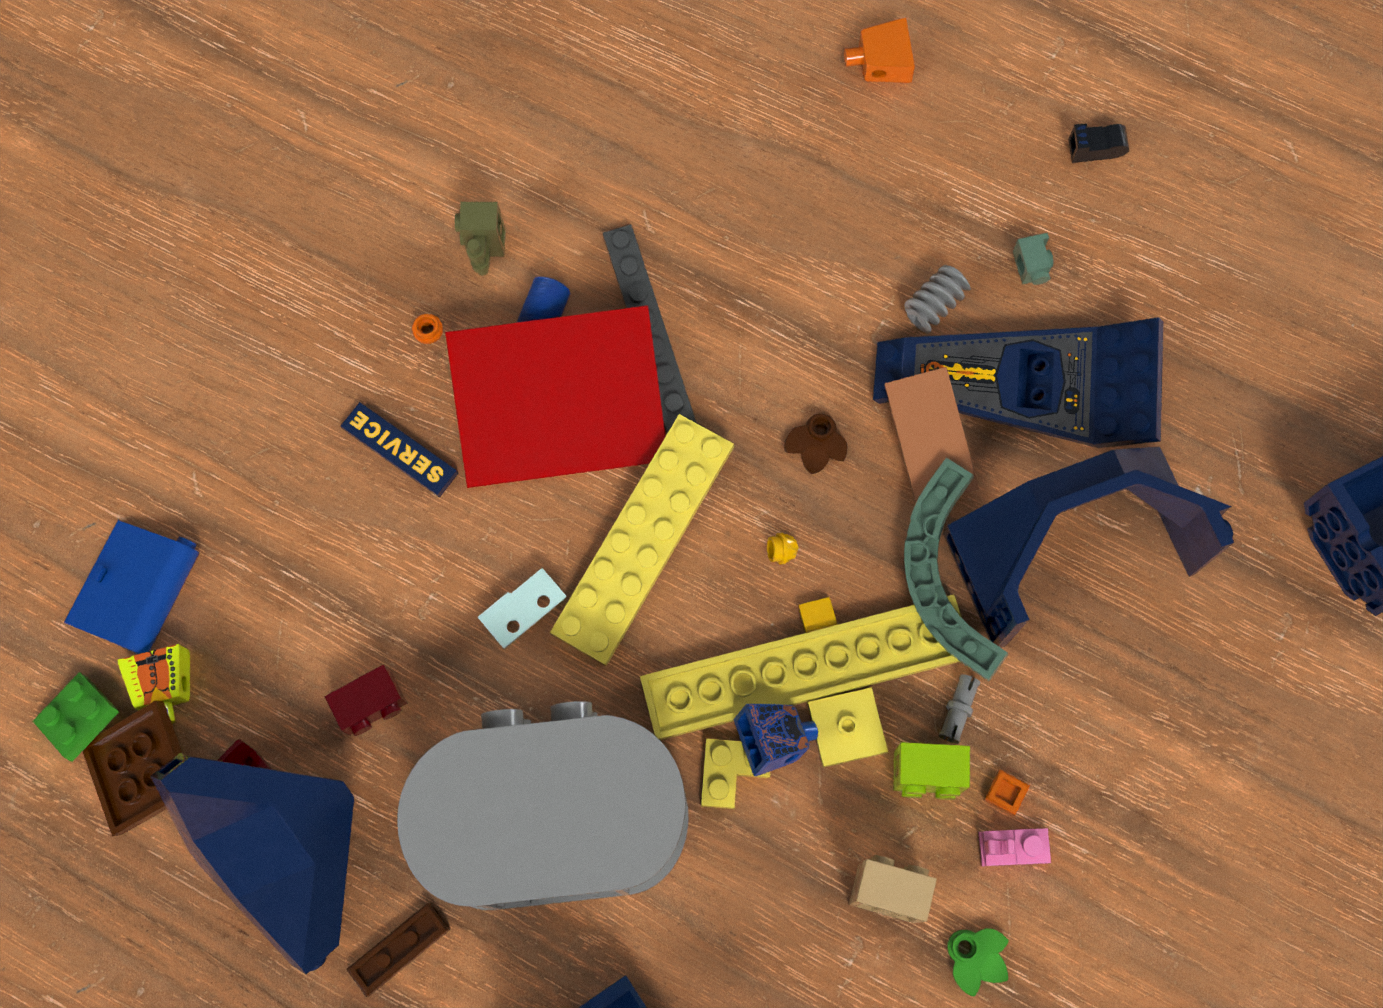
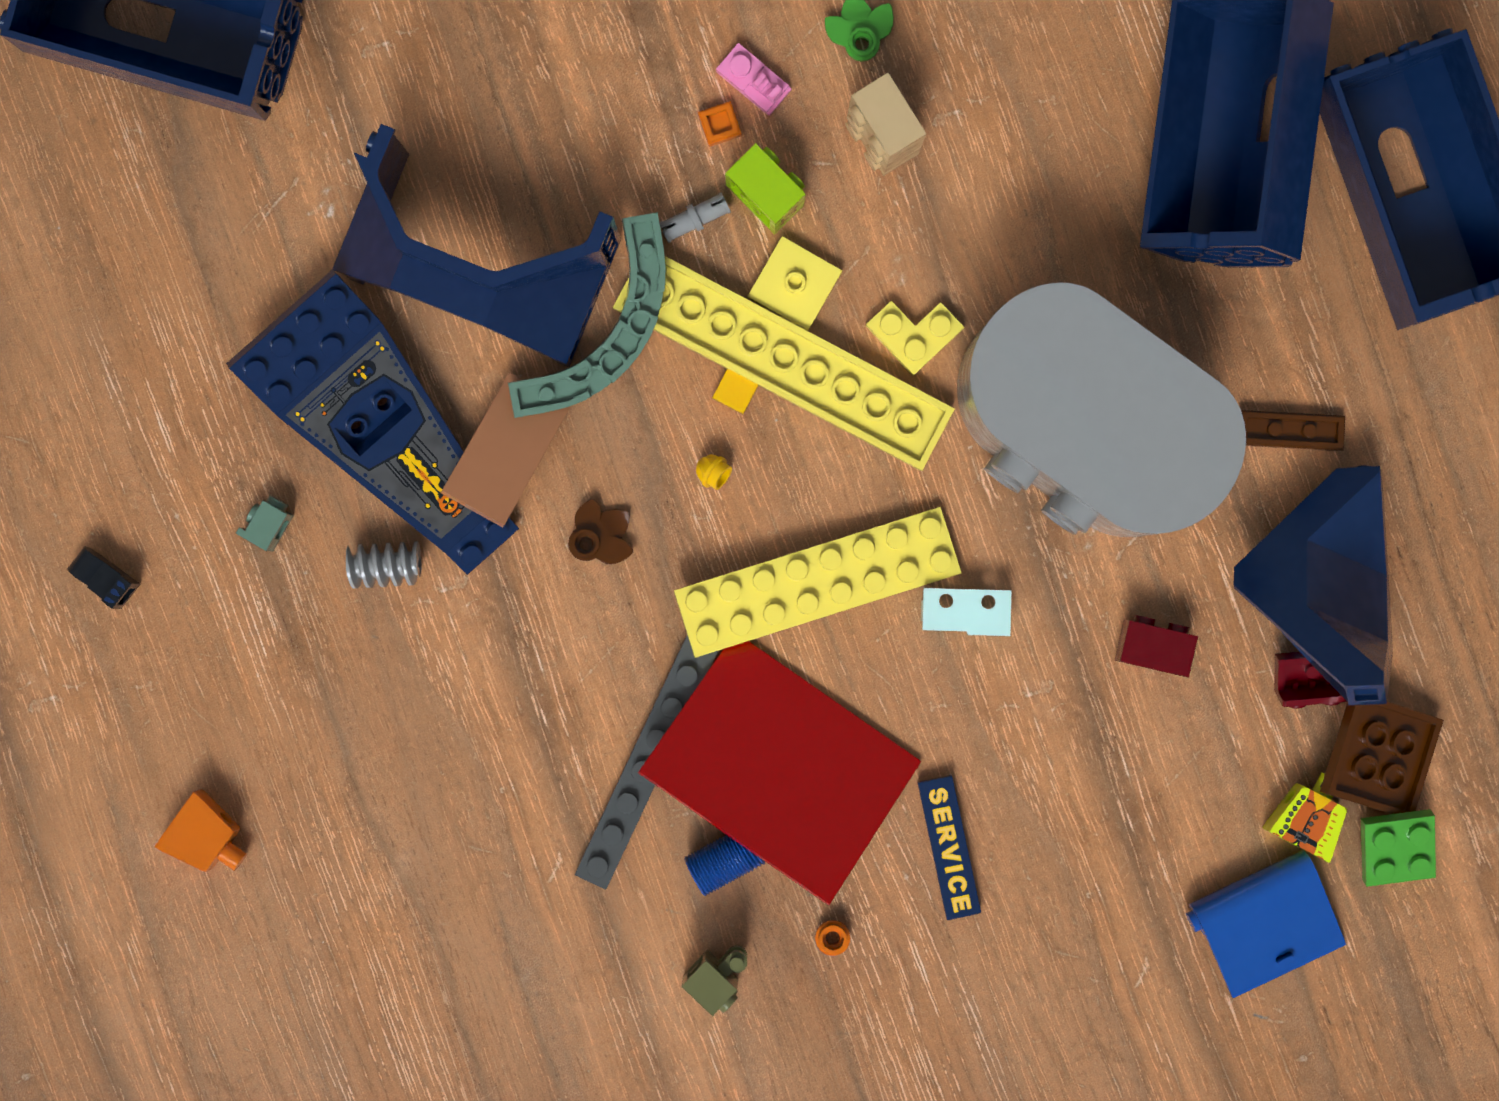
camera: 140 degrees left, 15 degrees up
(773, 735) = (862, 325): blue torso -> none

